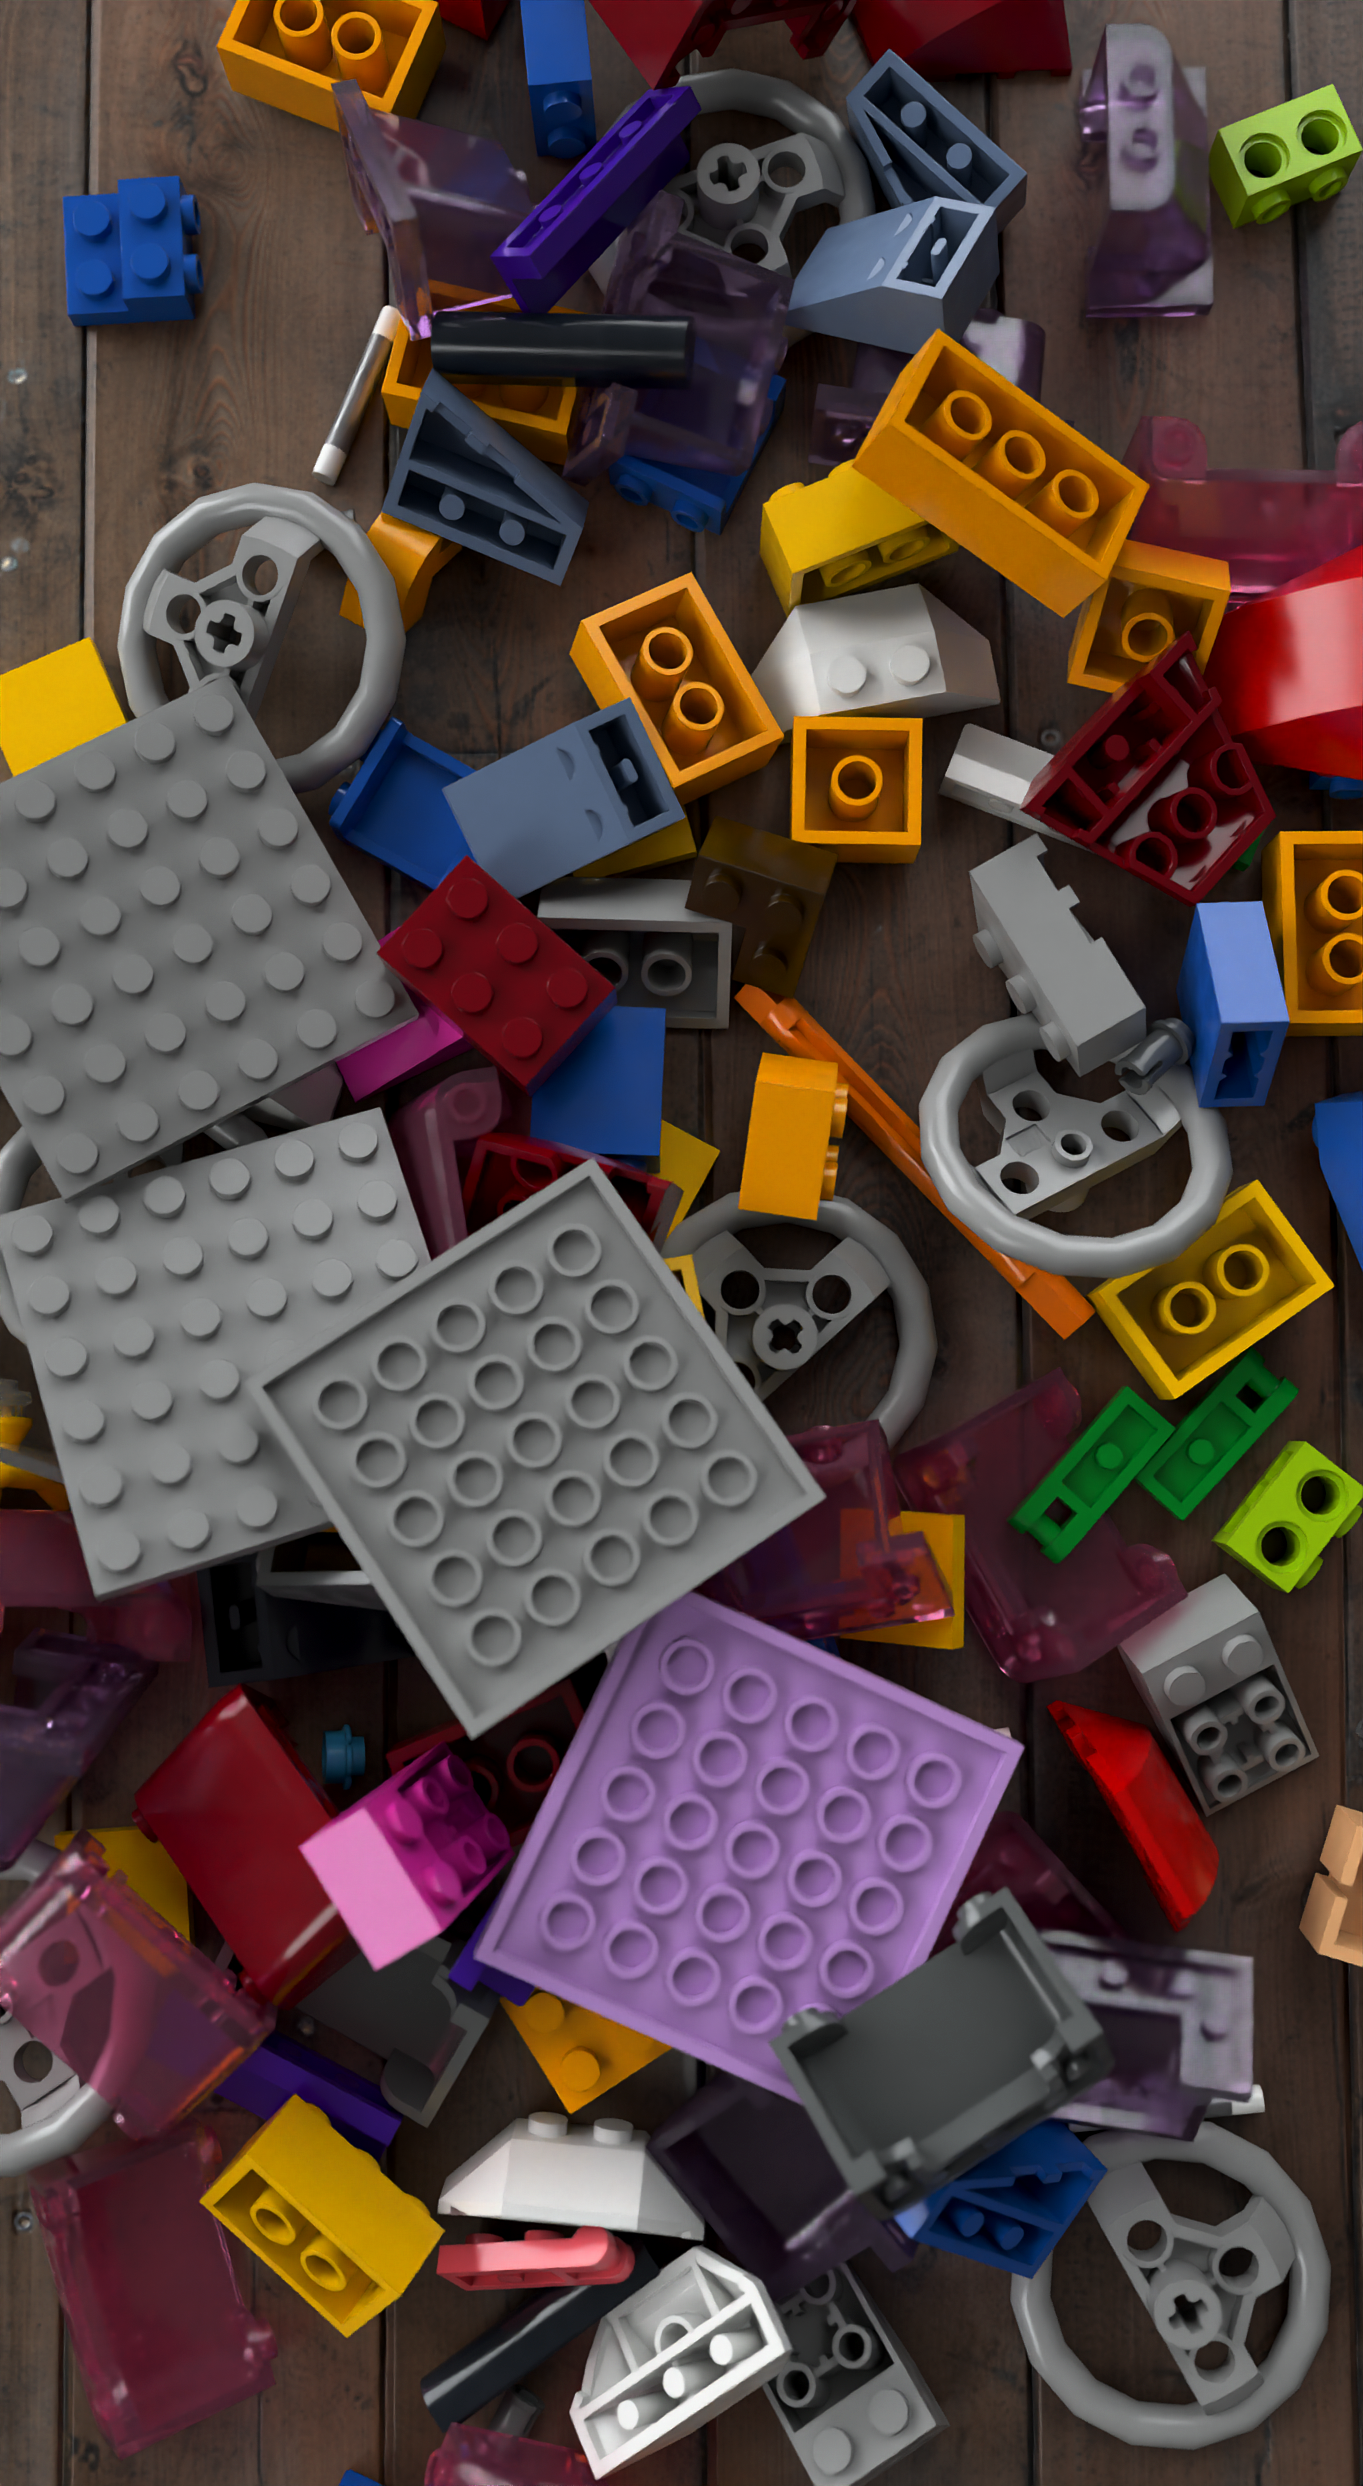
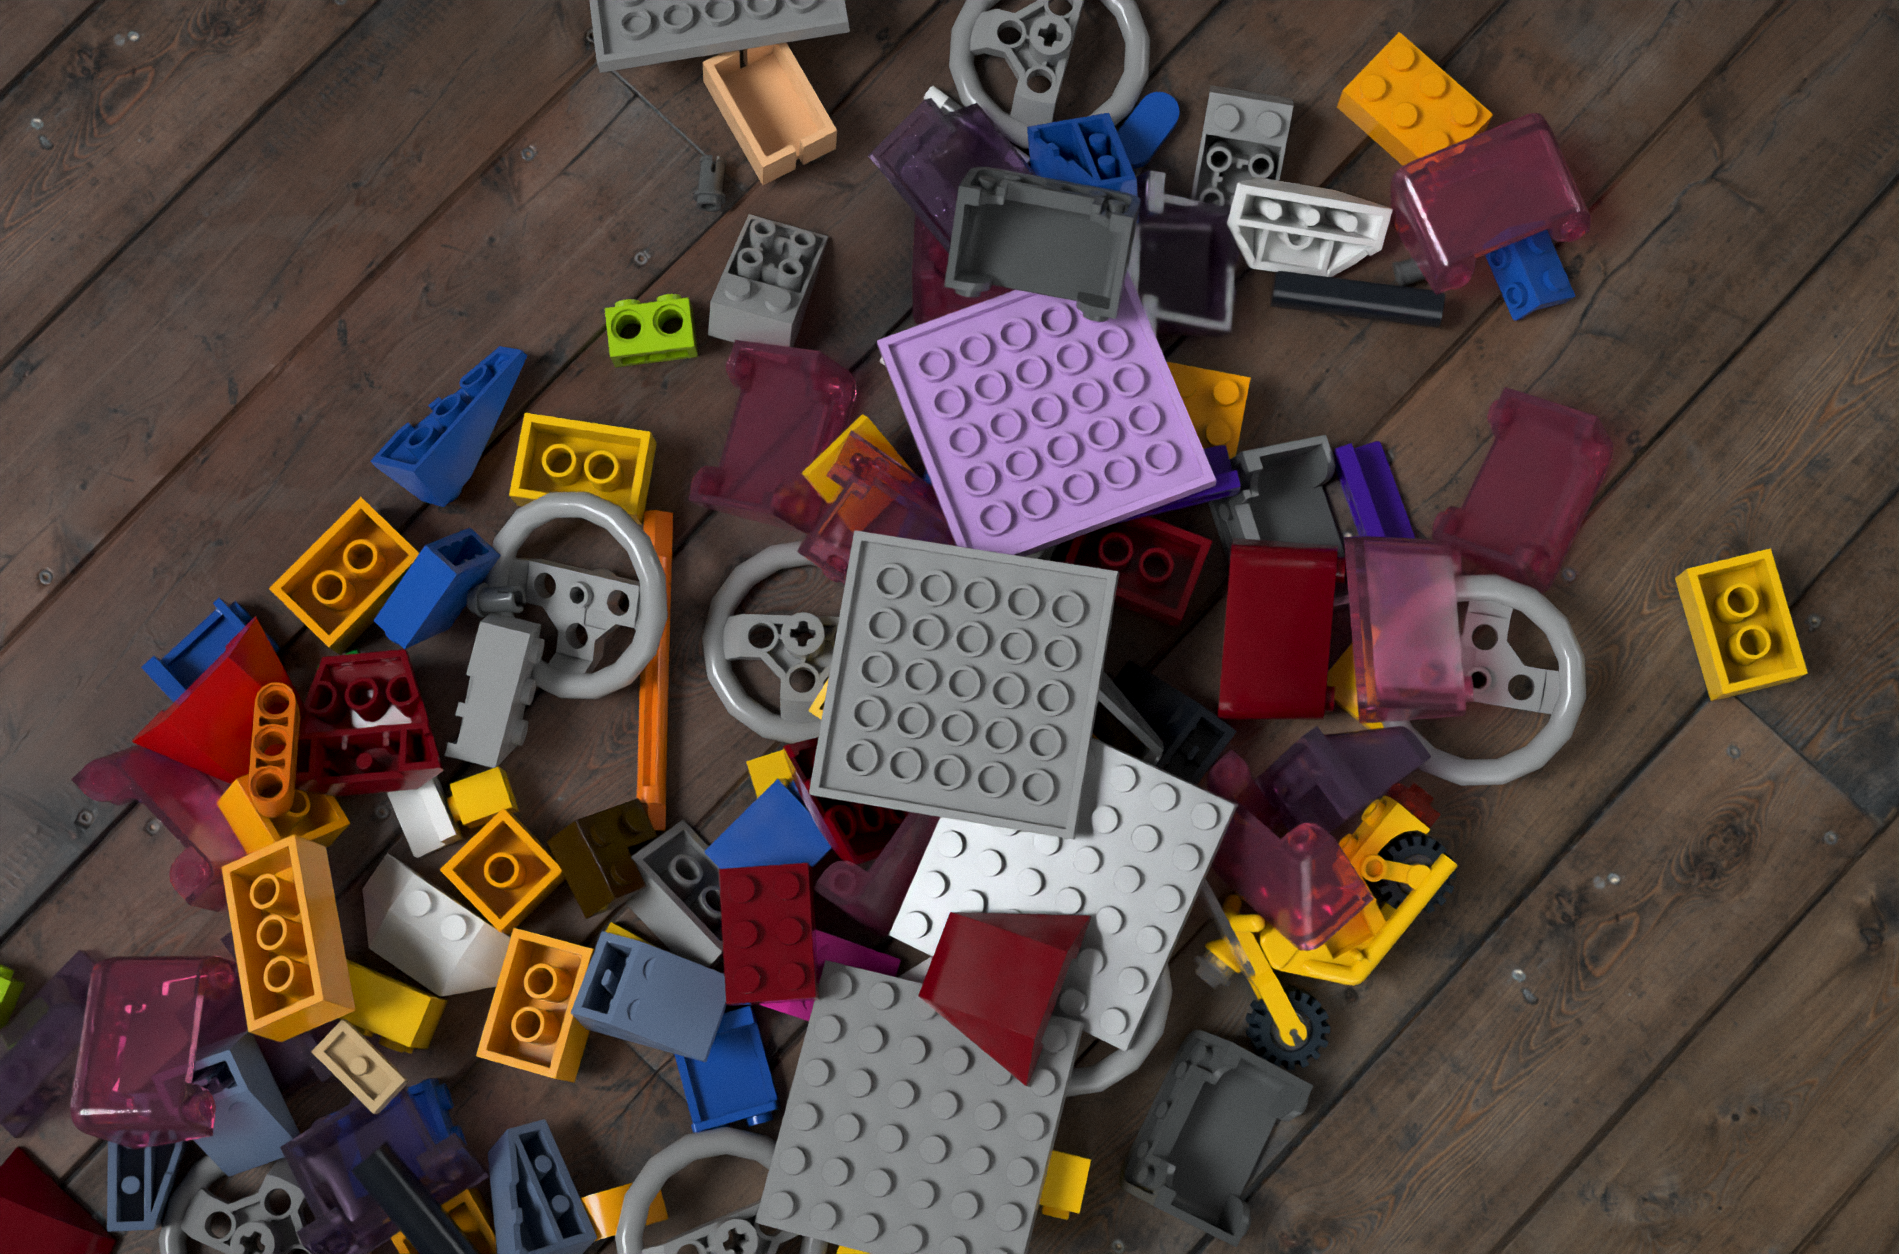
camera: 135 degrees left, 5 degrees down
(190, 1164) = (1002, 979): none -> dark red wedge
(323, 2216) = (1411, 440): yellow brick -> none
(342, 1756) = (1208, 645): dark azure plate -> none
(409, 1855) = (1202, 554): dark pink slope -> none
(538, 2261) = (1330, 328): coral plate -> none
(571, 2177) = (1280, 351): white wedge -> none
(788, 1136) = (705, 727): light orange brick -> none
(792, 430) = (360, 1066): none -> tan plate
(957, 844) = (481, 797): none -> yellow brick
(973, 2308) = (1148, 127): none -> blue tile
(1040, 229) = (143, 1048): none -> clear pink windscreen
(1092, 1473) = (723, 438): green plate -> none
(1147, 1806) = (849, 266): red wedge -> none
(1214, 1435) = (649, 401): green plate -> none
(1252, 664) = (271, 730): none -> orange beam

